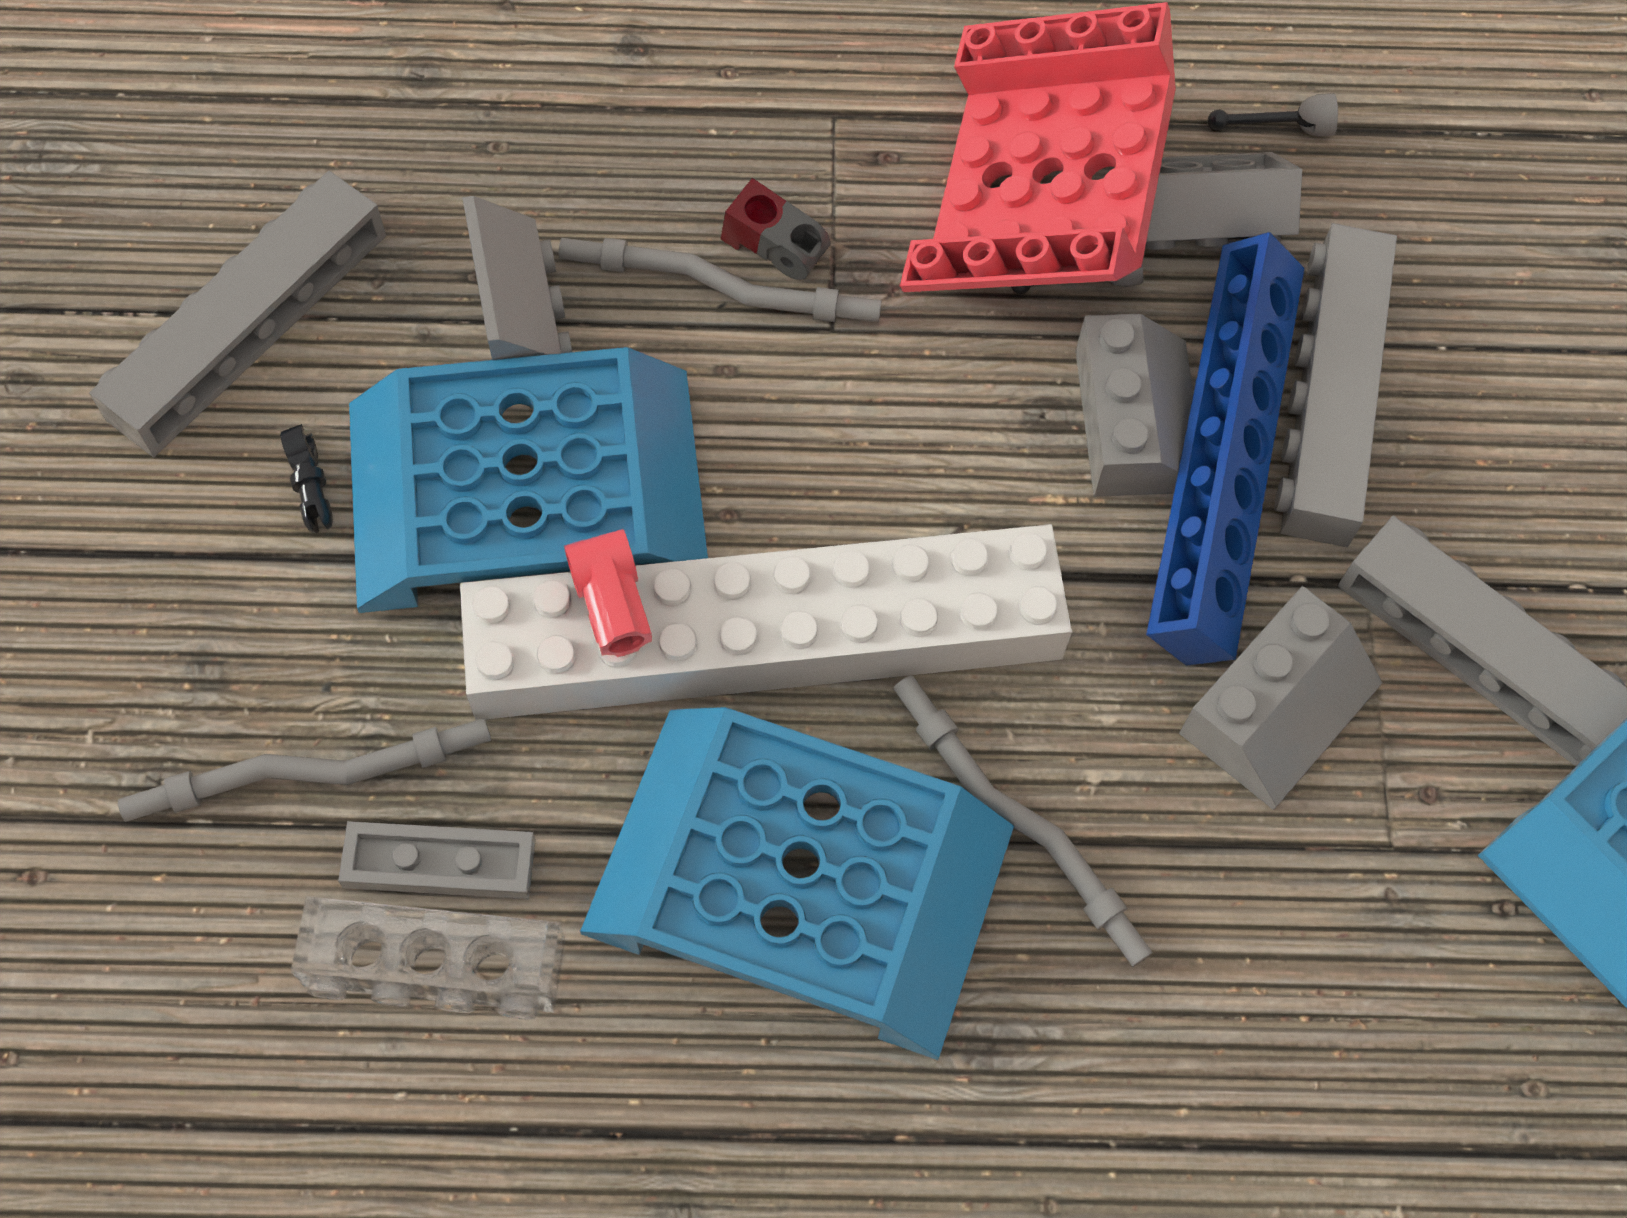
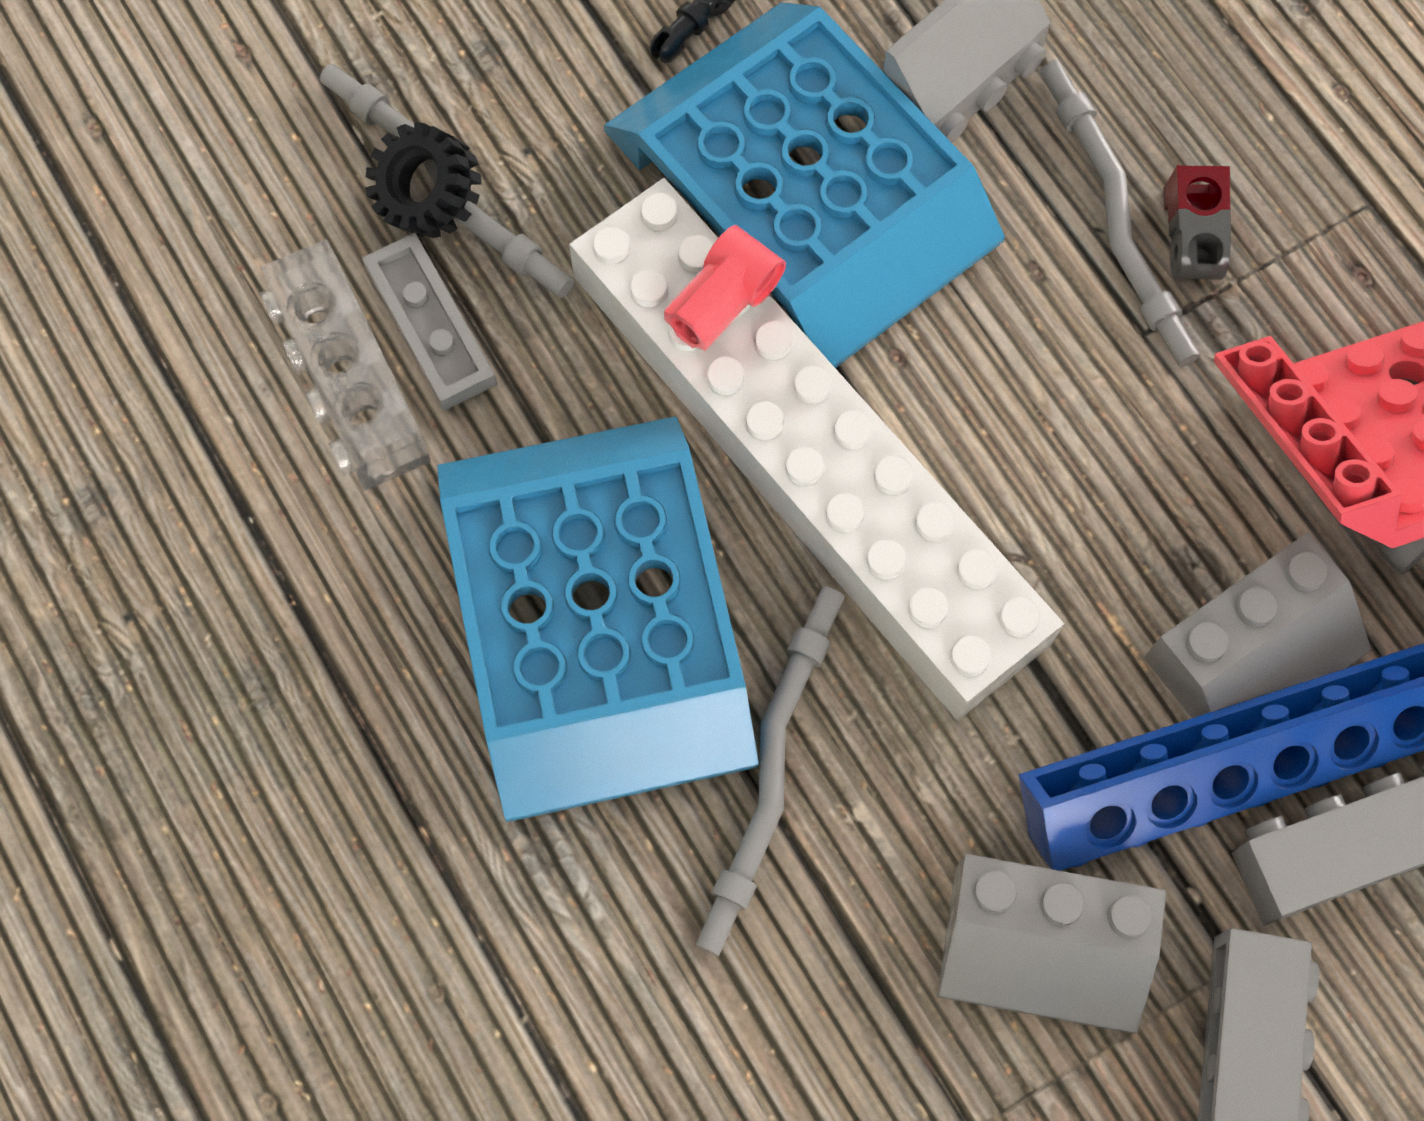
camera: 60 degrees right, 5 degrees up
(278, 810) = (395, 175): none -> black tyre

